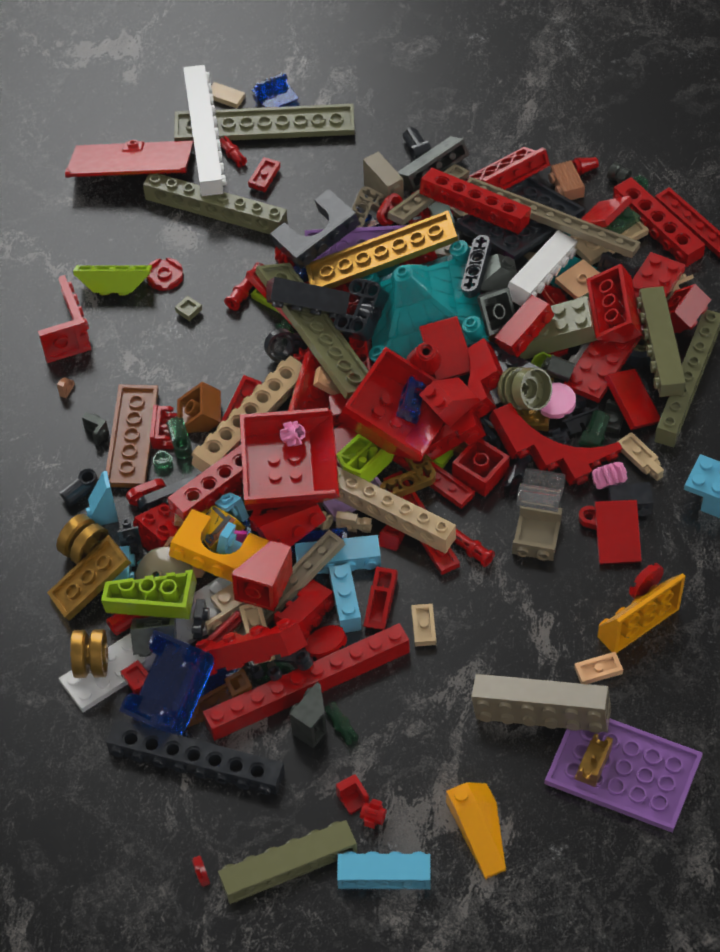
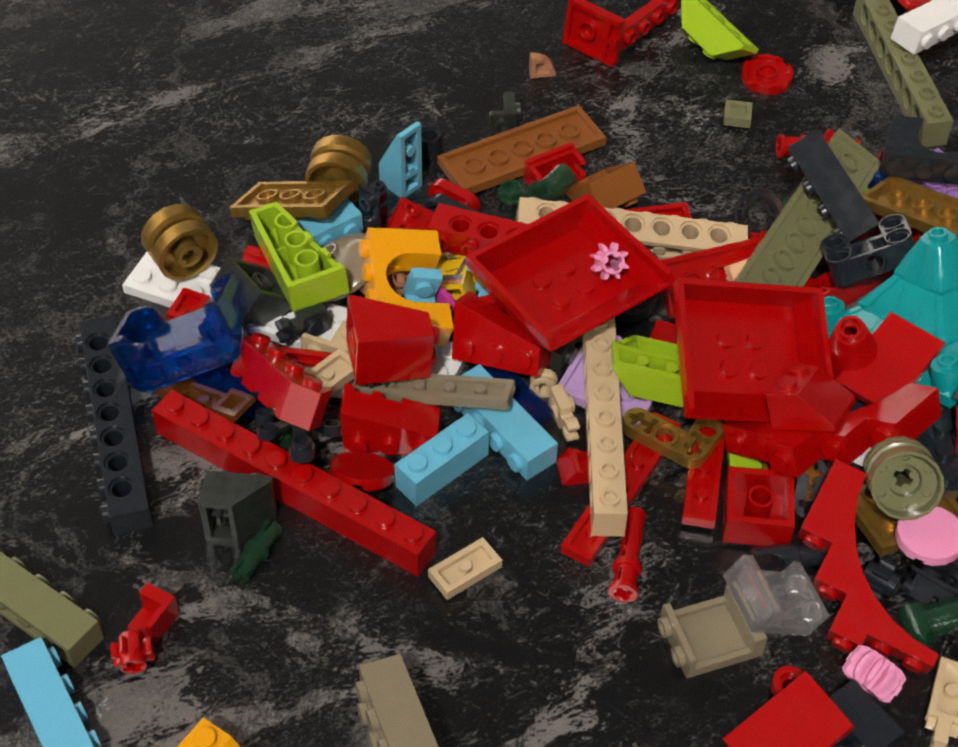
camera: 55 degrees right, 5 degrees down
(380, 598) = (472, 499): red slope -> none
(410, 401) = (766, 365): clear blue hinge -> none

